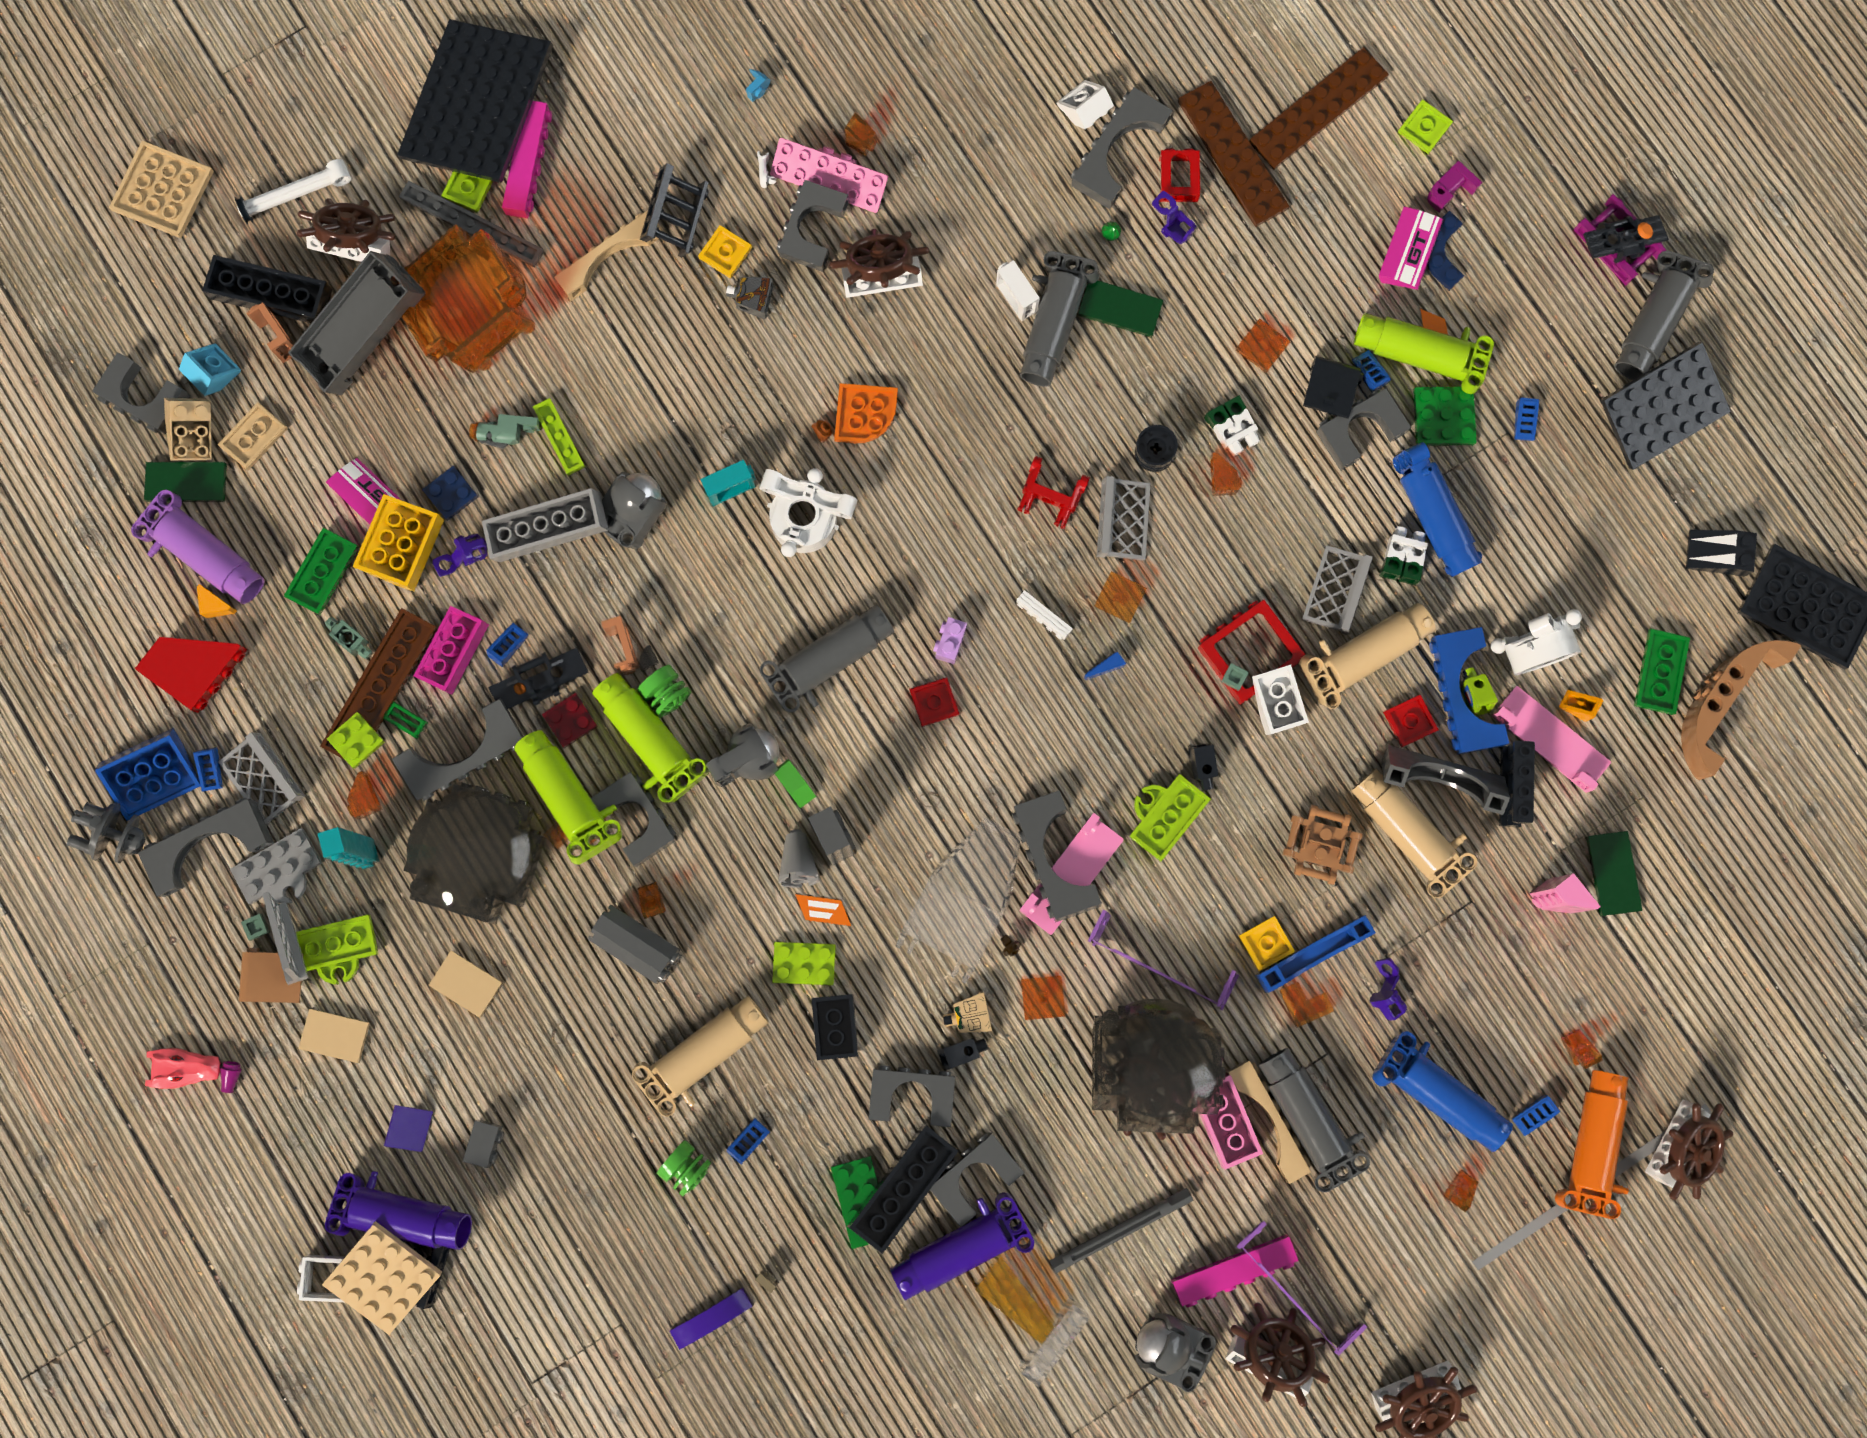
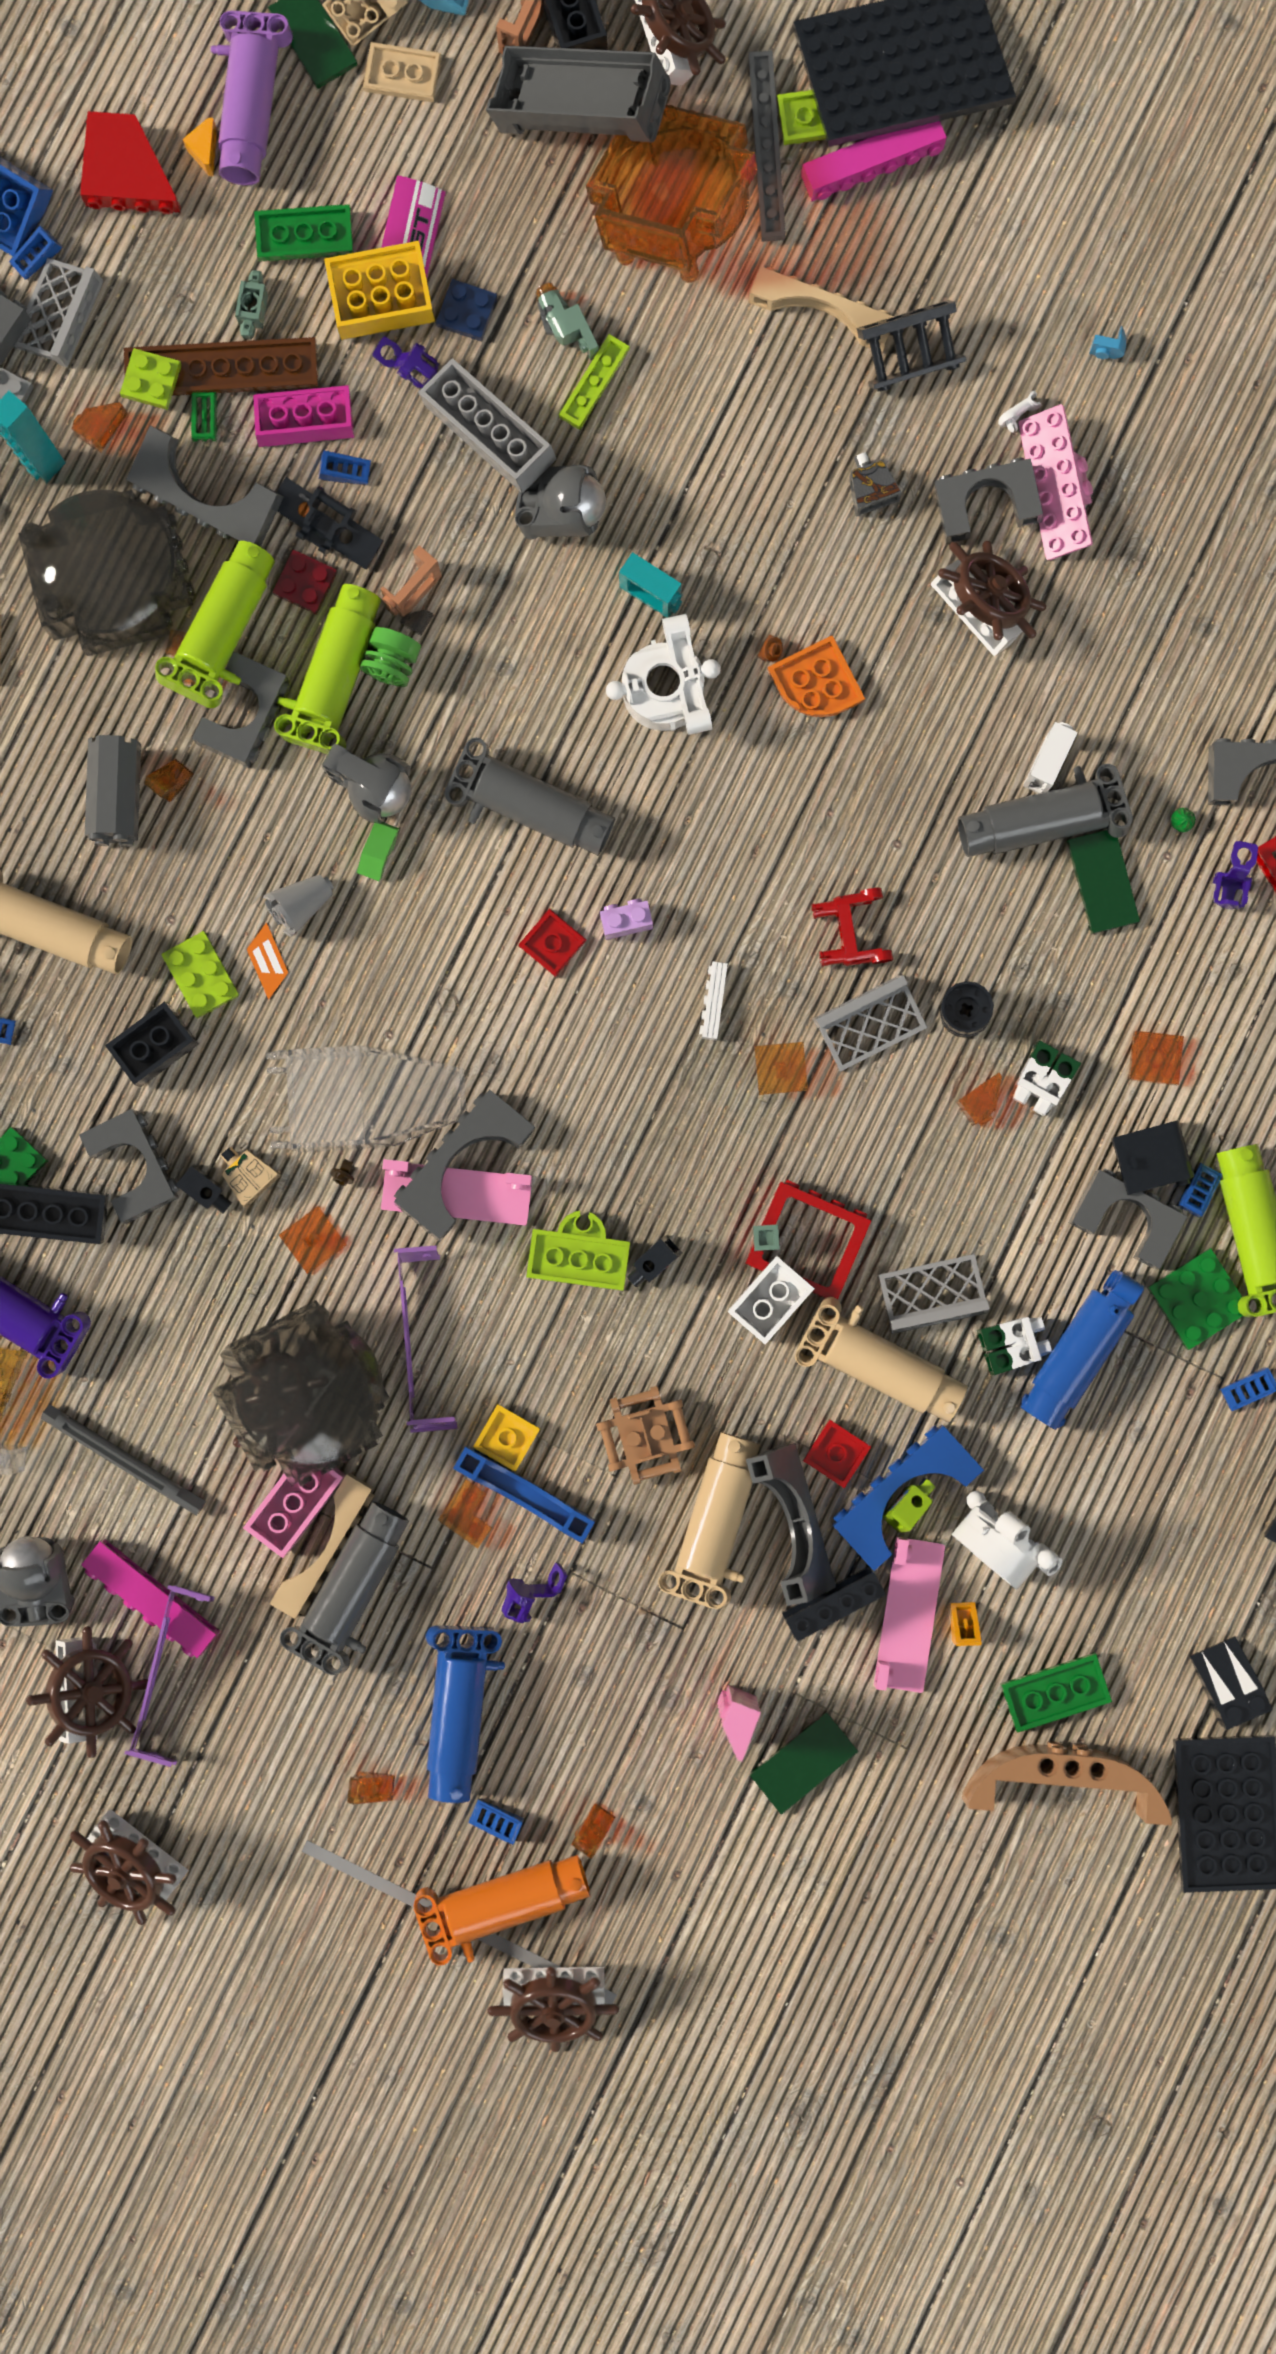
camera: 65 degrees right, 5 degrees up
(725, 251) = (902, 427): yellow plate -> none
(832, 835) = (334, 916): dark grey brick -> none
(860, 135) = (1120, 487): clear orange slope -> none
(987, 1151) = (120, 1277): dark grey arch -> none
(1110, 664) = (702, 1100): blue slope -> none

